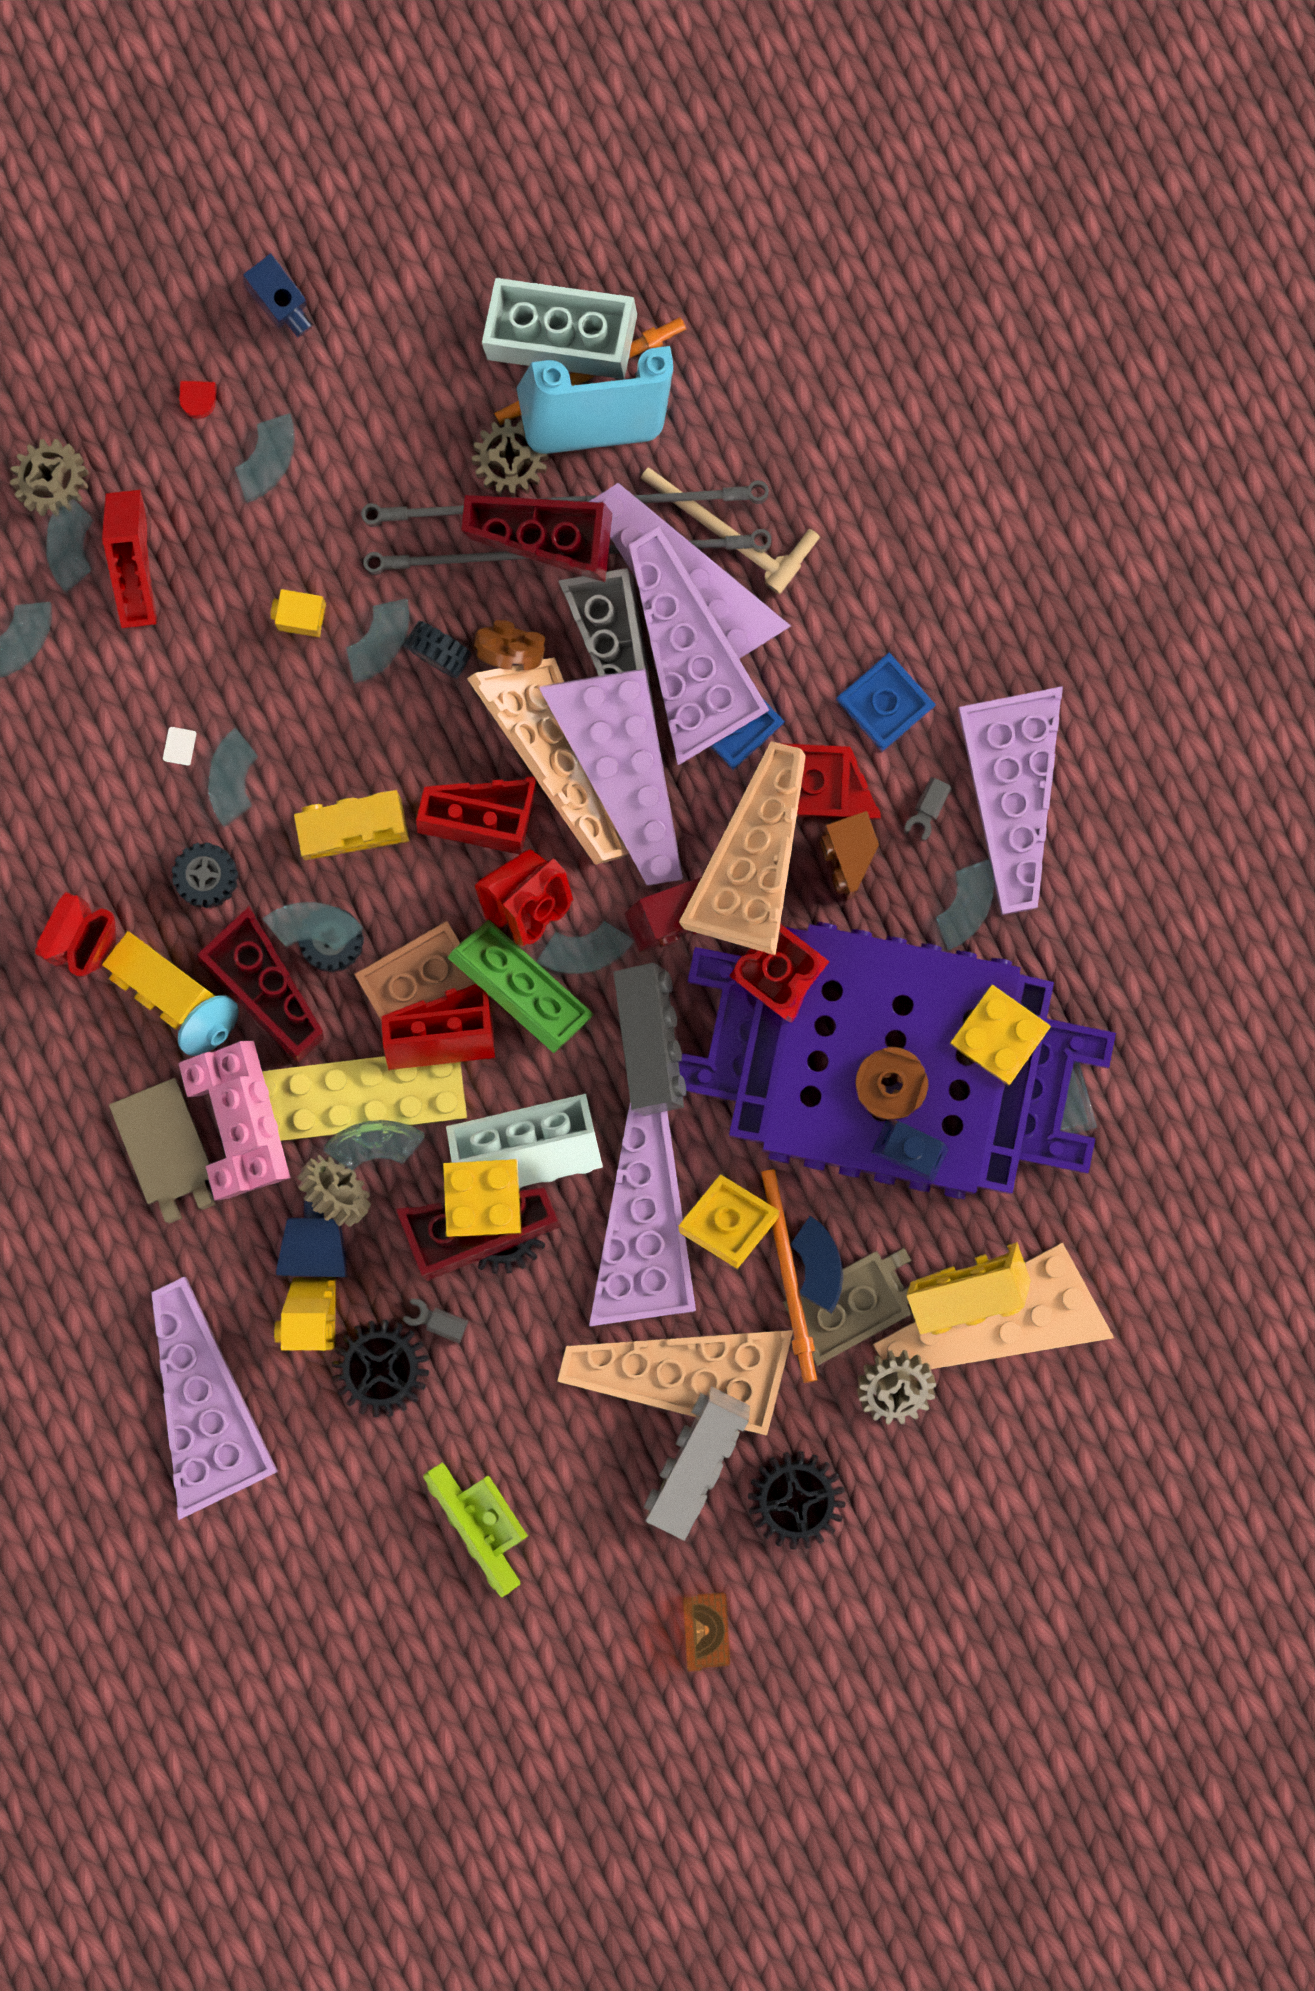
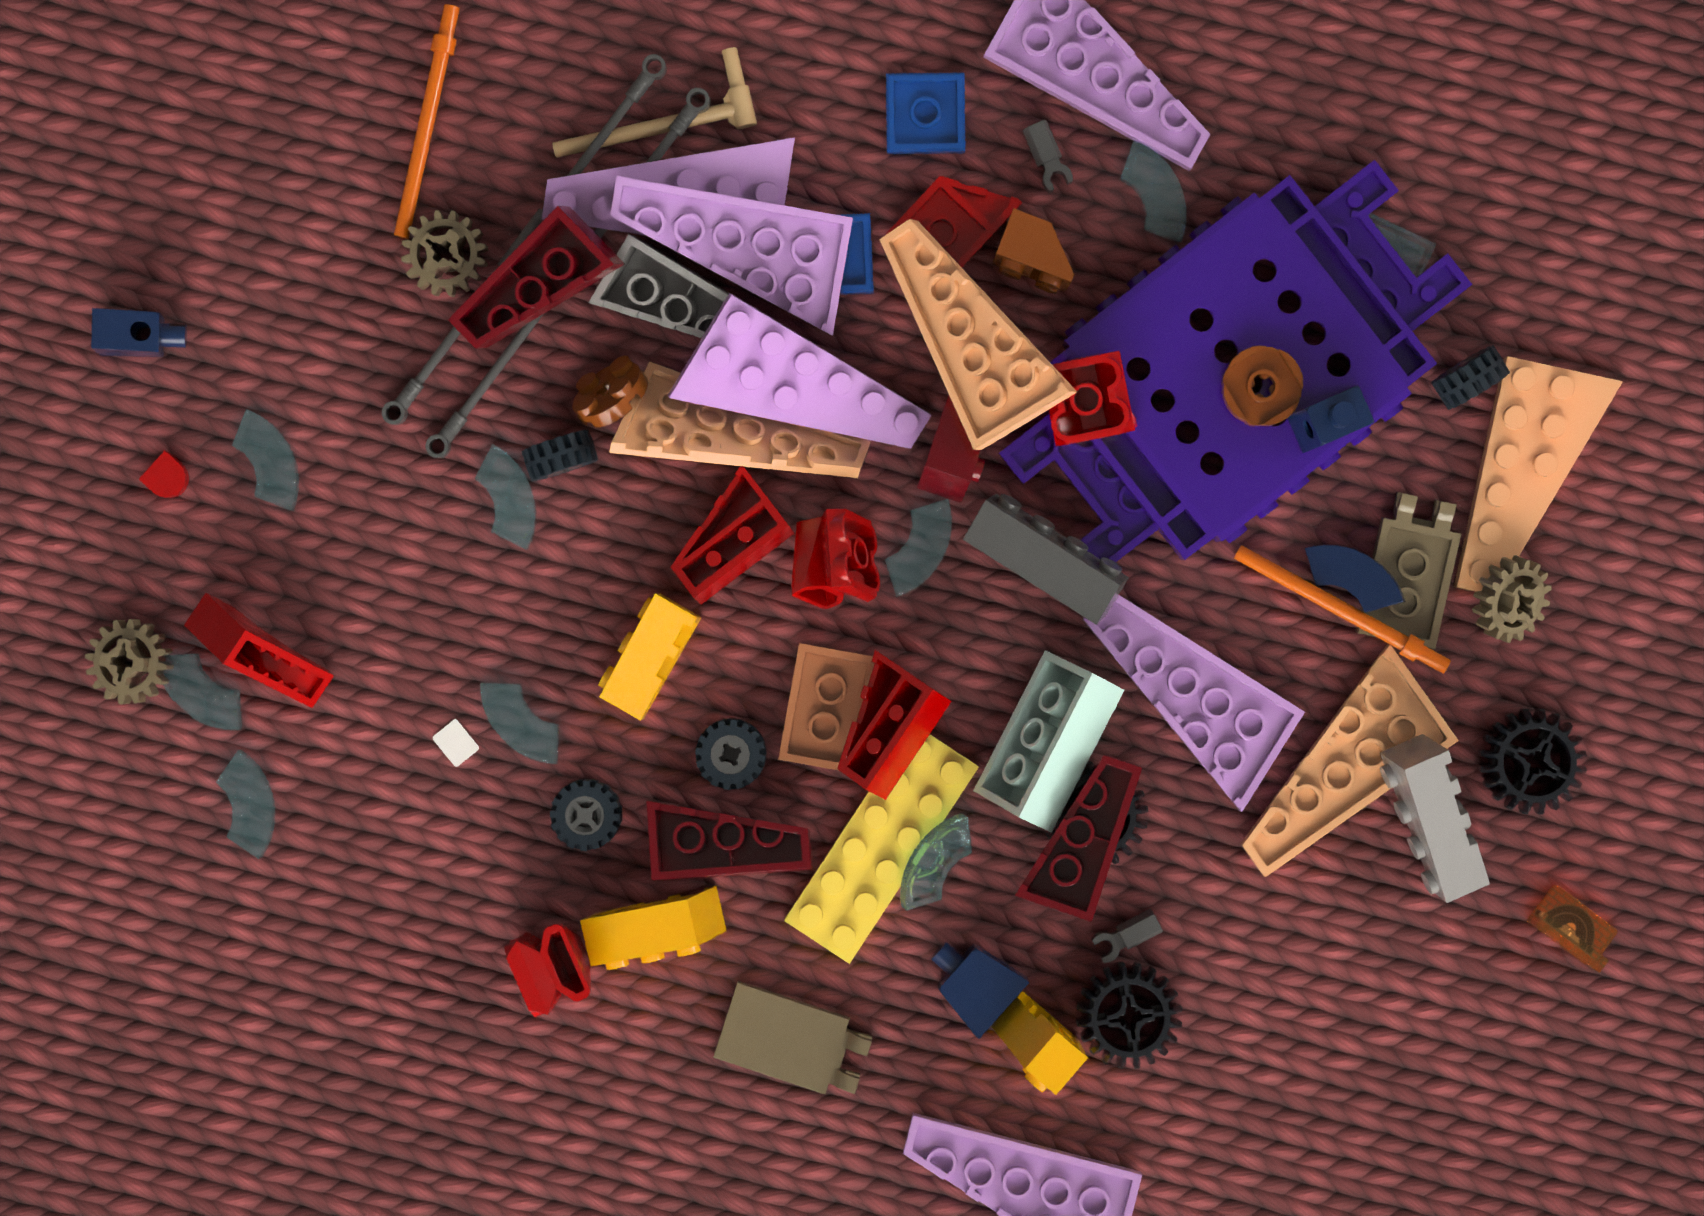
camera: 50 degrees left, 5 degrees up
(208, 1025) = (718, 919): medium azure dish -> none
(243, 1119) = (821, 955): bright pink bracket -> none
(298, 613) = (427, 547): yellow brick -> none
(314, 922) = (705, 758): clear light blue tile -> none
(334, 1191) = (949, 931): dark tan gear -> none
(482, 1198) = (1069, 816): yellow plate -> none
(482, 1522) = (1328, 1038): lime bracket -> none
(520, 986) = (908, 628): bright green tile -> none
(568, 325) = (368, 115): light aqua brick -> none
(594, 414) = (455, 173): medium azure windscreen -> none
(728, 1221) = (1255, 621): yellow plate -> none
(970, 1293) = (1492, 469): yellow wedge -> none
(1000, 1035) = (1298, 258): yellow plate -> none
(1024, 1226) = (1470, 377): none -> black wheel

